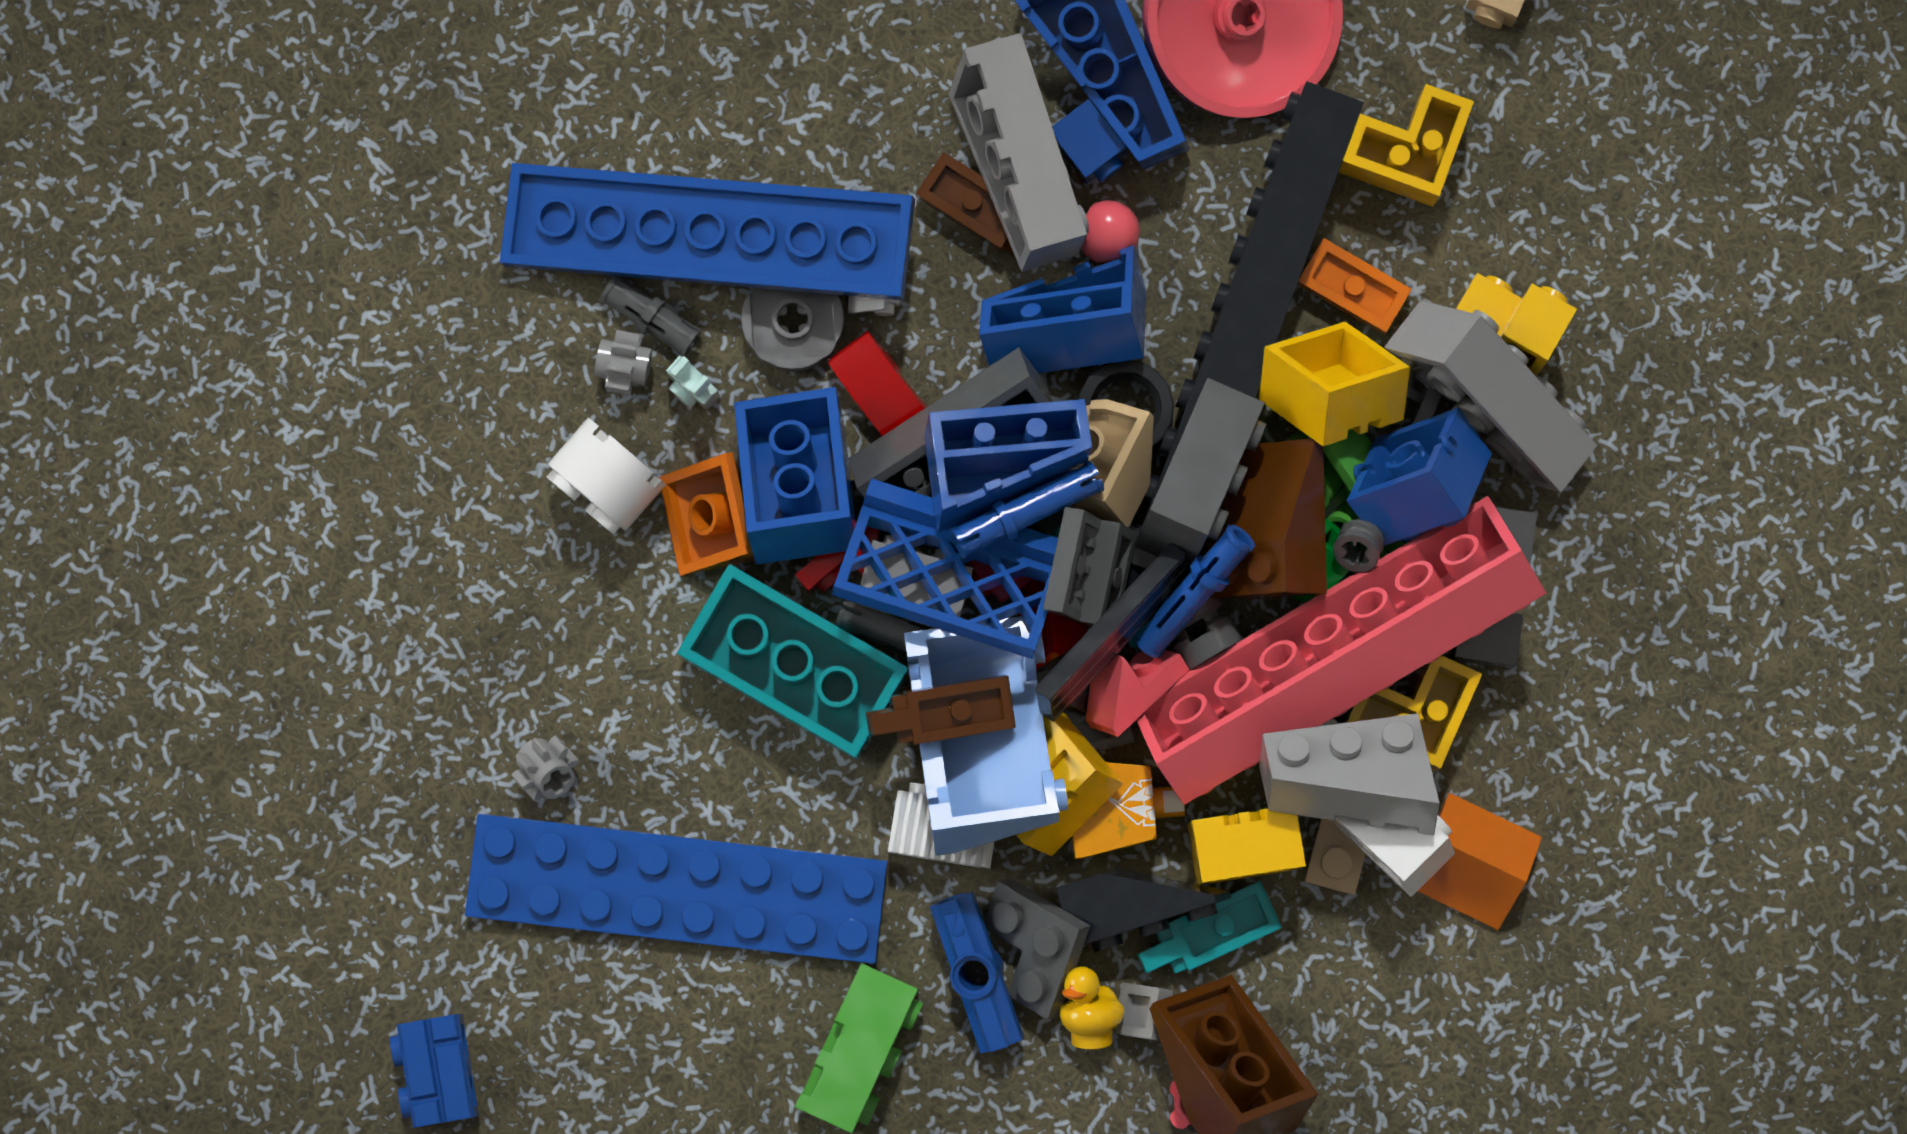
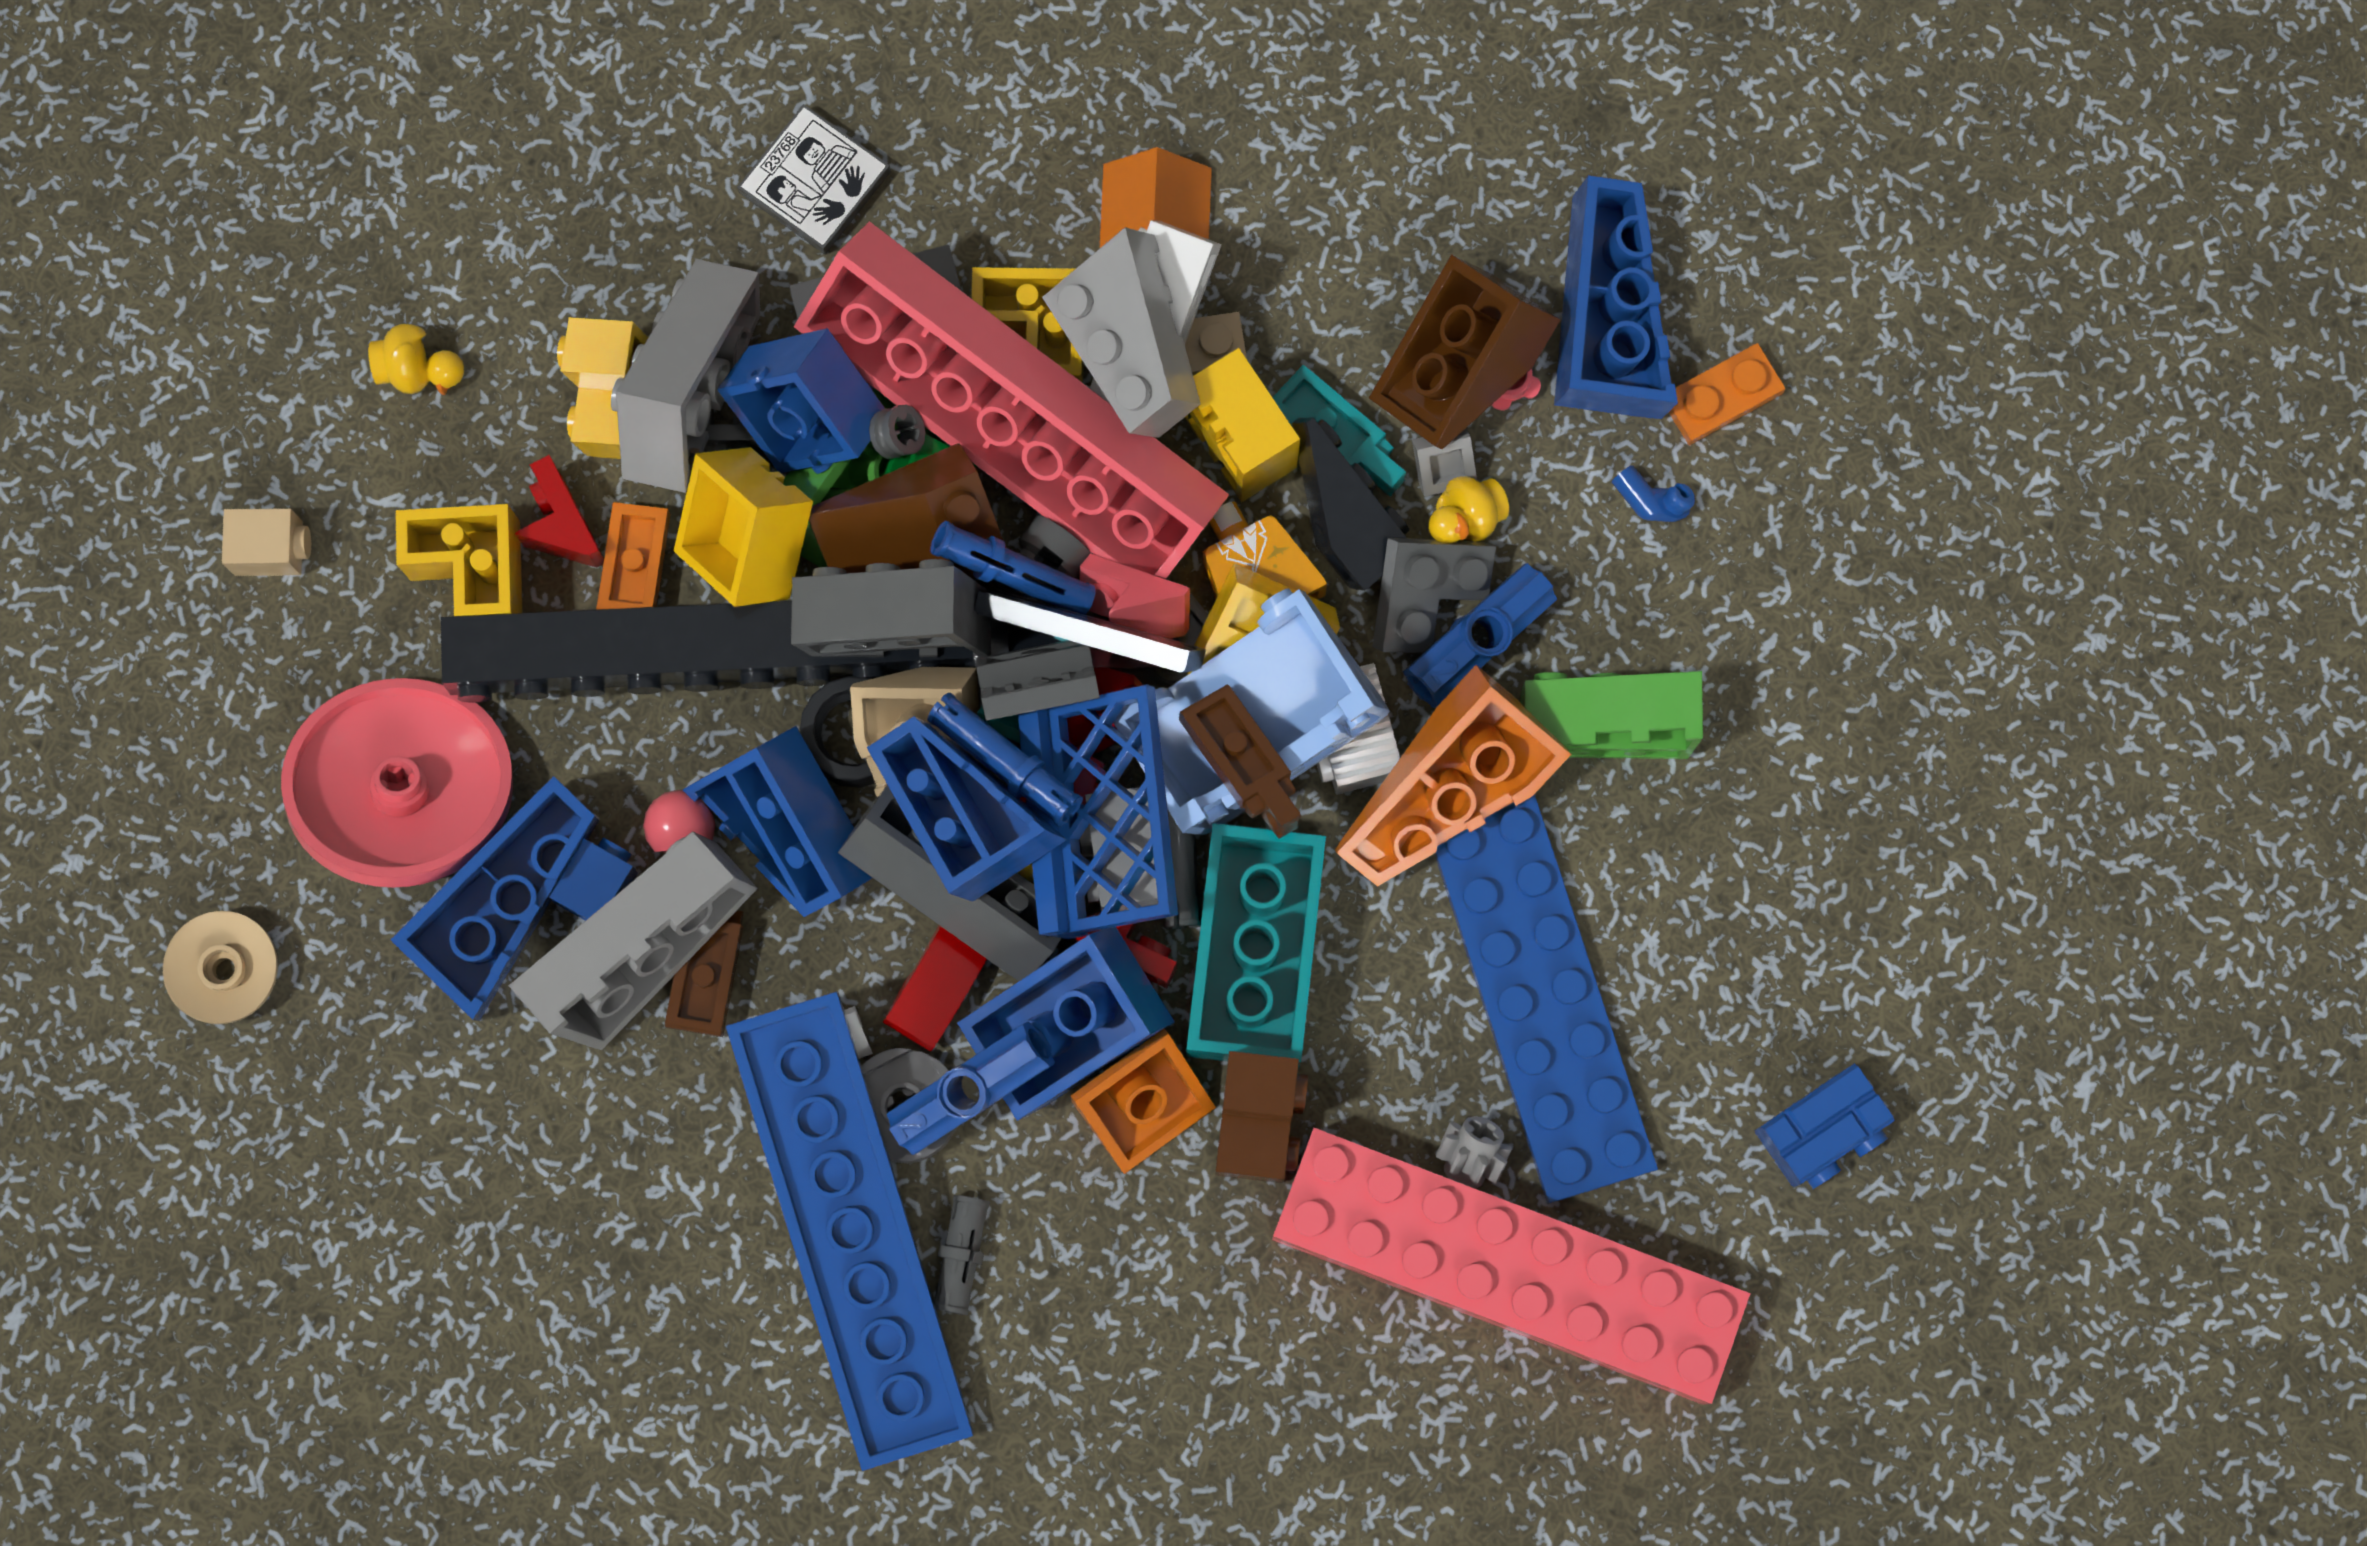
camera: 115 degrees left, 5 degrees down
(438, 755) = (1511, 1267): none -> coral brick
(605, 476) = (1148, 1221): white brick -> none
(623, 362) = (1022, 1258): light grey gear -> none
(649, 601) = (1257, 1117): none -> reddish brown brick
(691, 385) = (1016, 1178): light aqua plate -> none
(775, 396) = (995, 1071): none -> blue piece
(866, 901) = (1458, 770): none -> orange wedge
(1404, 243) = (563, 531): none -> red slope
(1611, 163) = (404, 364): none -> yellow animal
(1634, 580) = (814, 179): none -> tile

